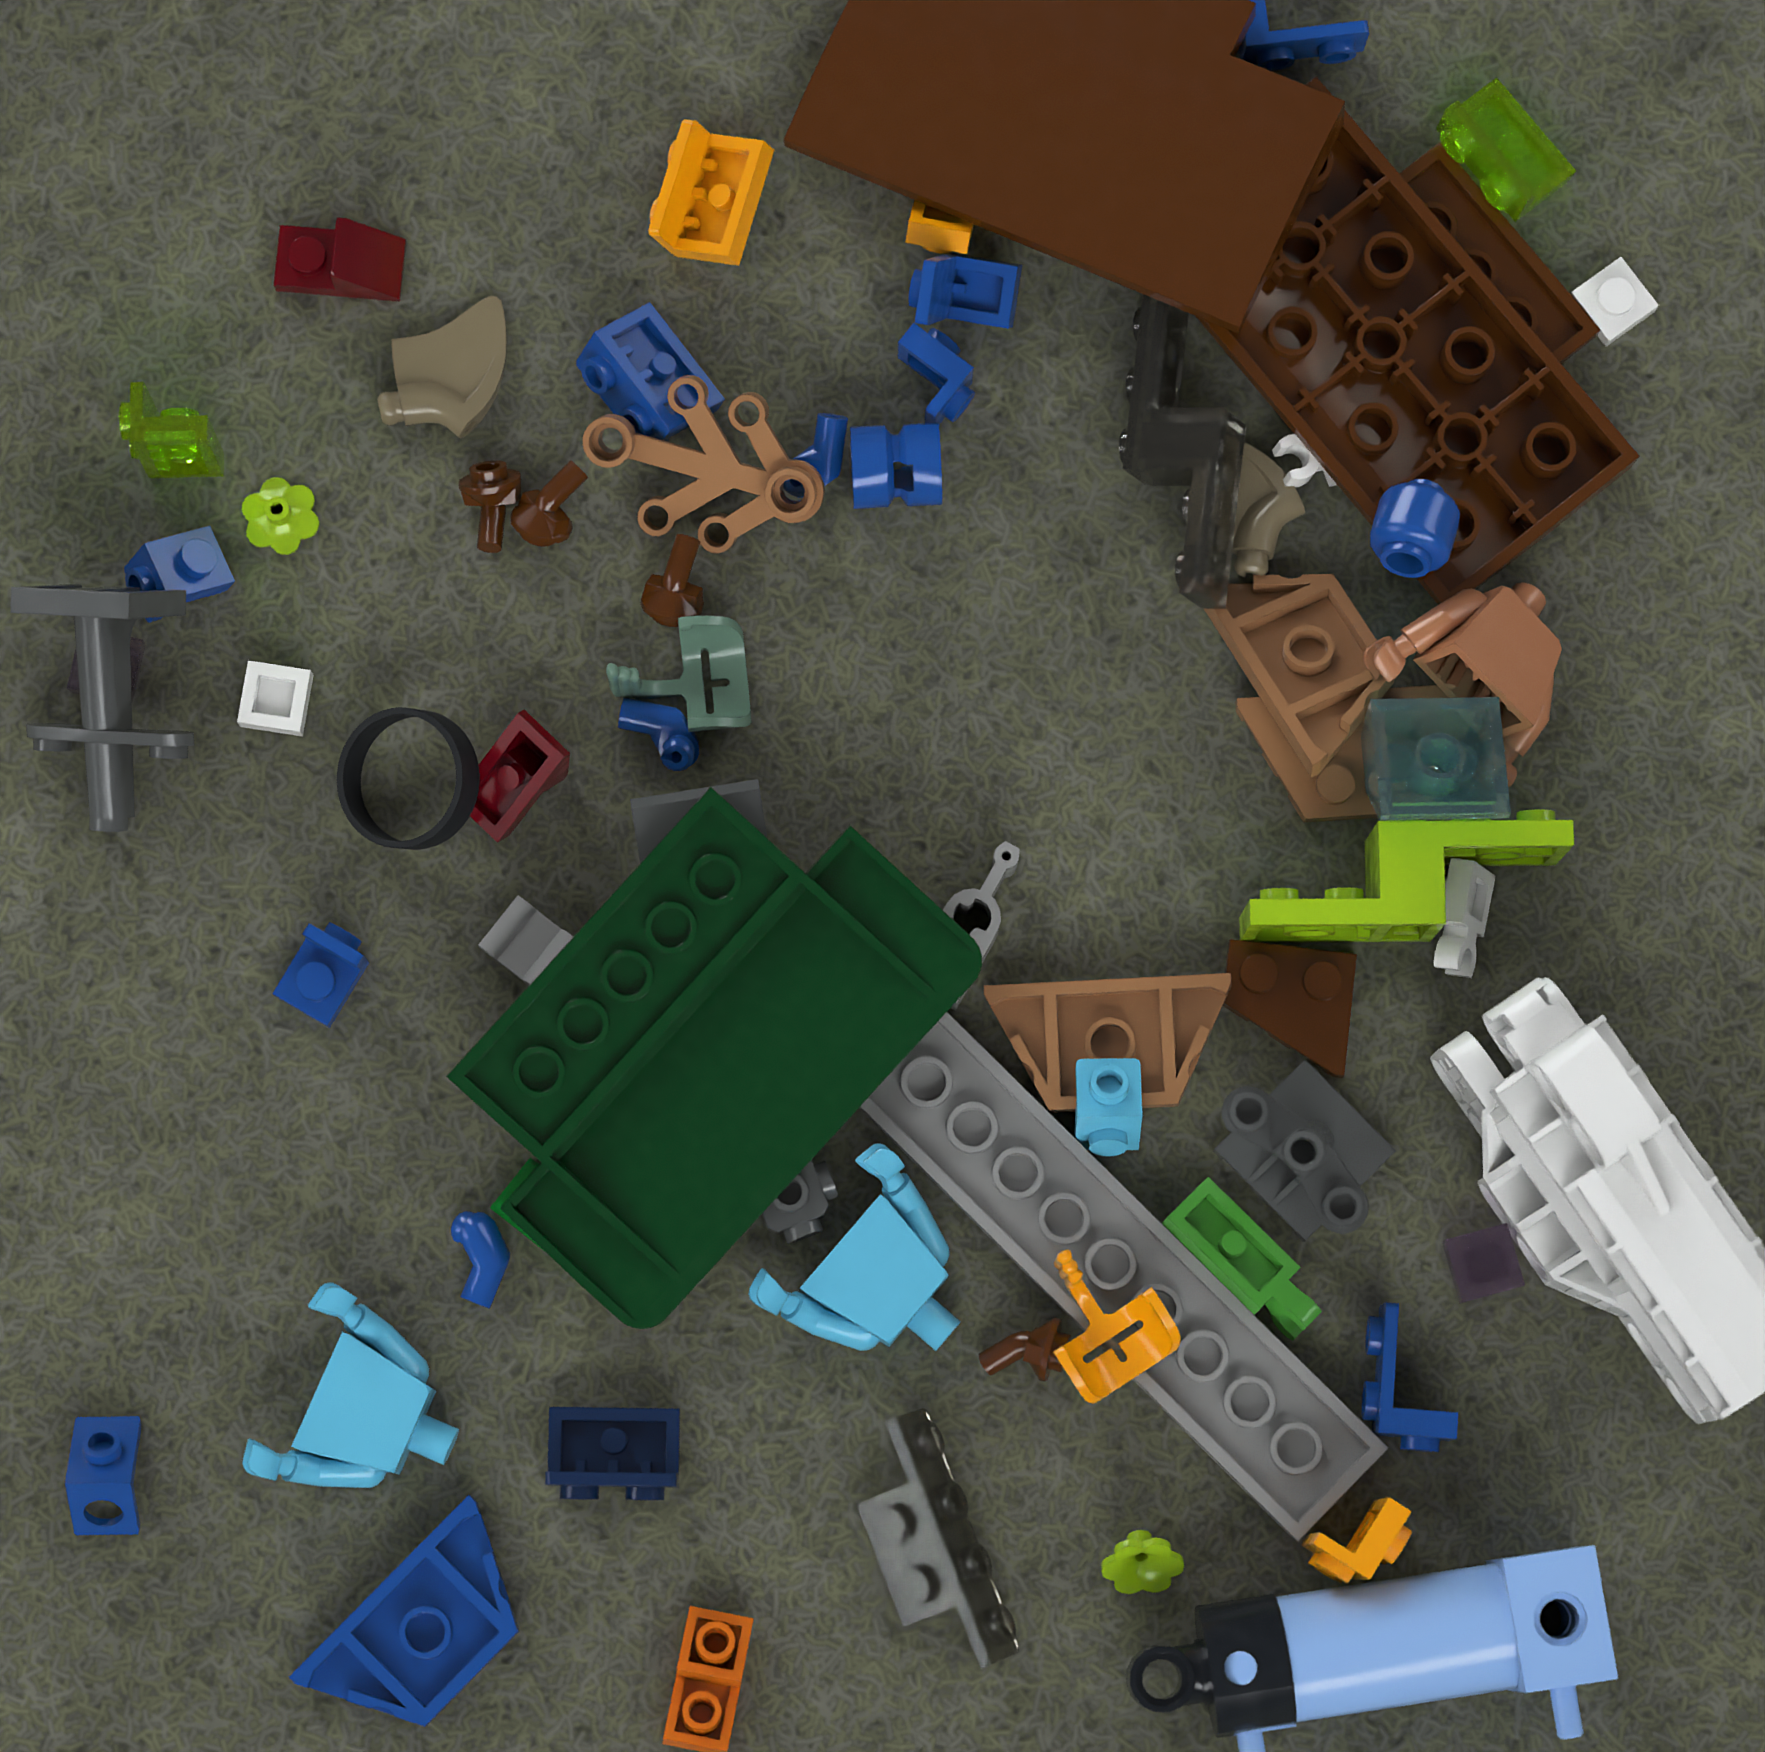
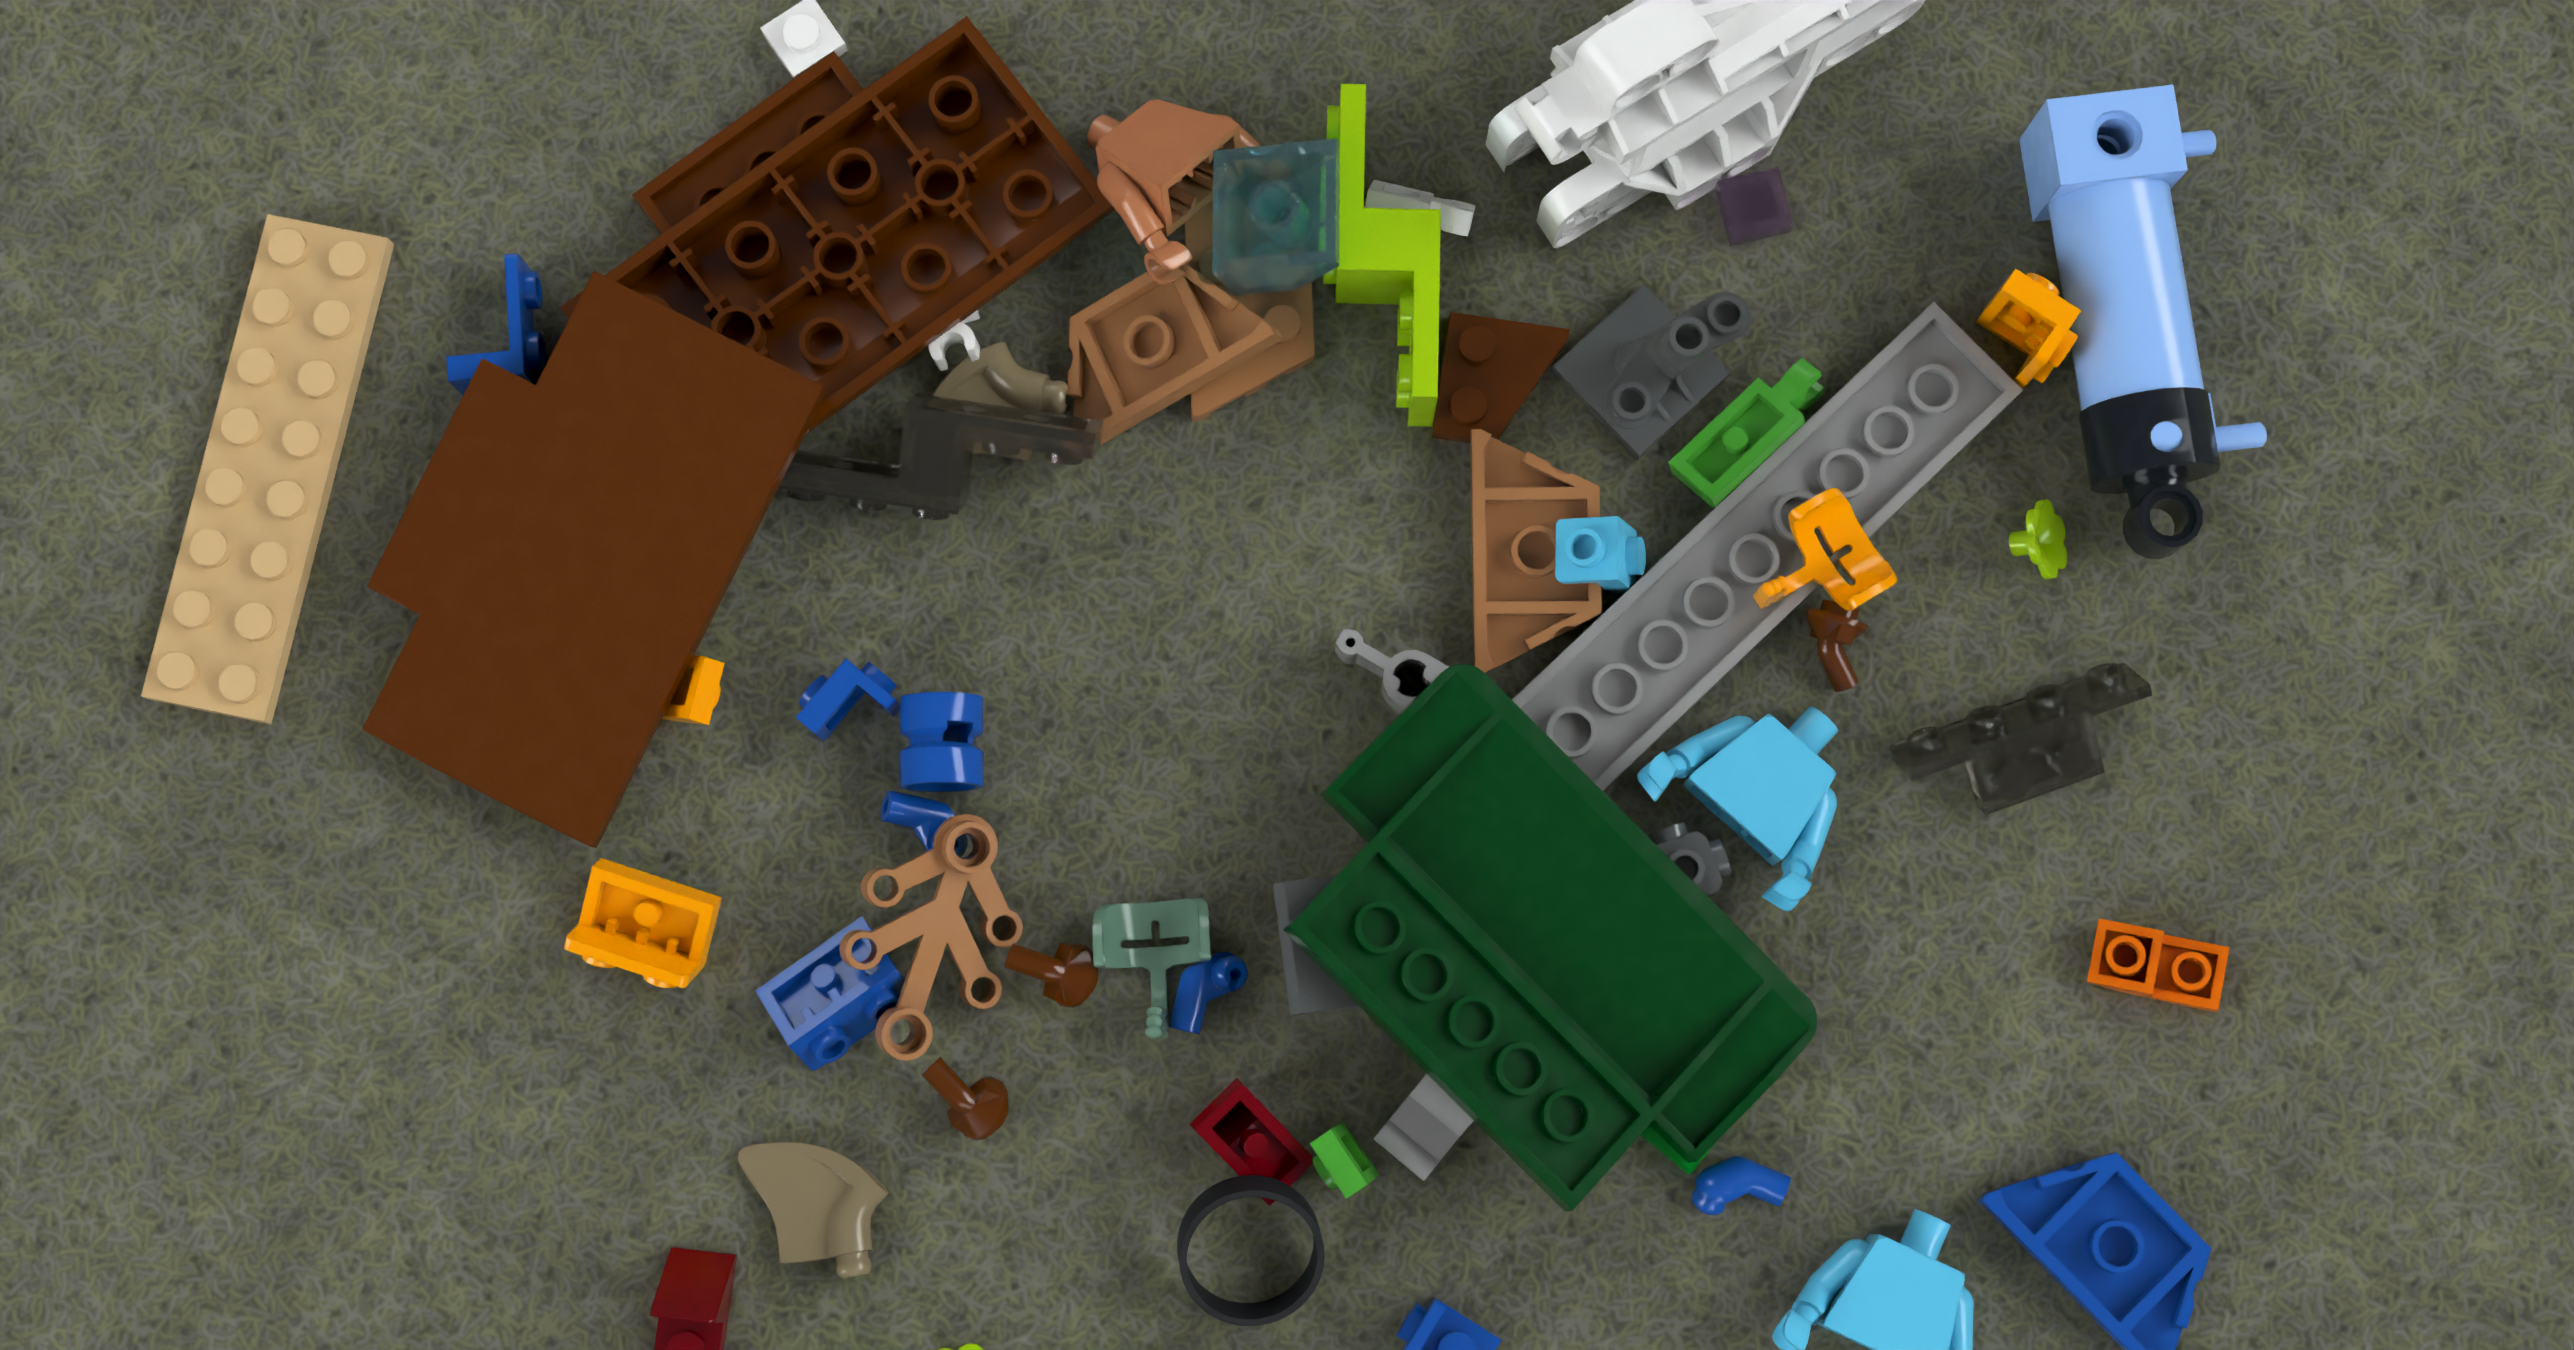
camera: 85 degrees left, 0 degrees up
(491, 488) = (943, 1159): reddish brown plate -> none
(497, 867) = (1342, 1161): none -> bright green plate
(613, 1450) = (1938, 1053): dark blue bracket -> none
(965, 290) = (762, 663): blue bracket -> none
(1414, 528) = (1036, 226): blue head -> none
(1417, 1428) = (1913, 276): blue bracket -> none
(1503, 150) = (645, 132): clear neon green bracket -> none

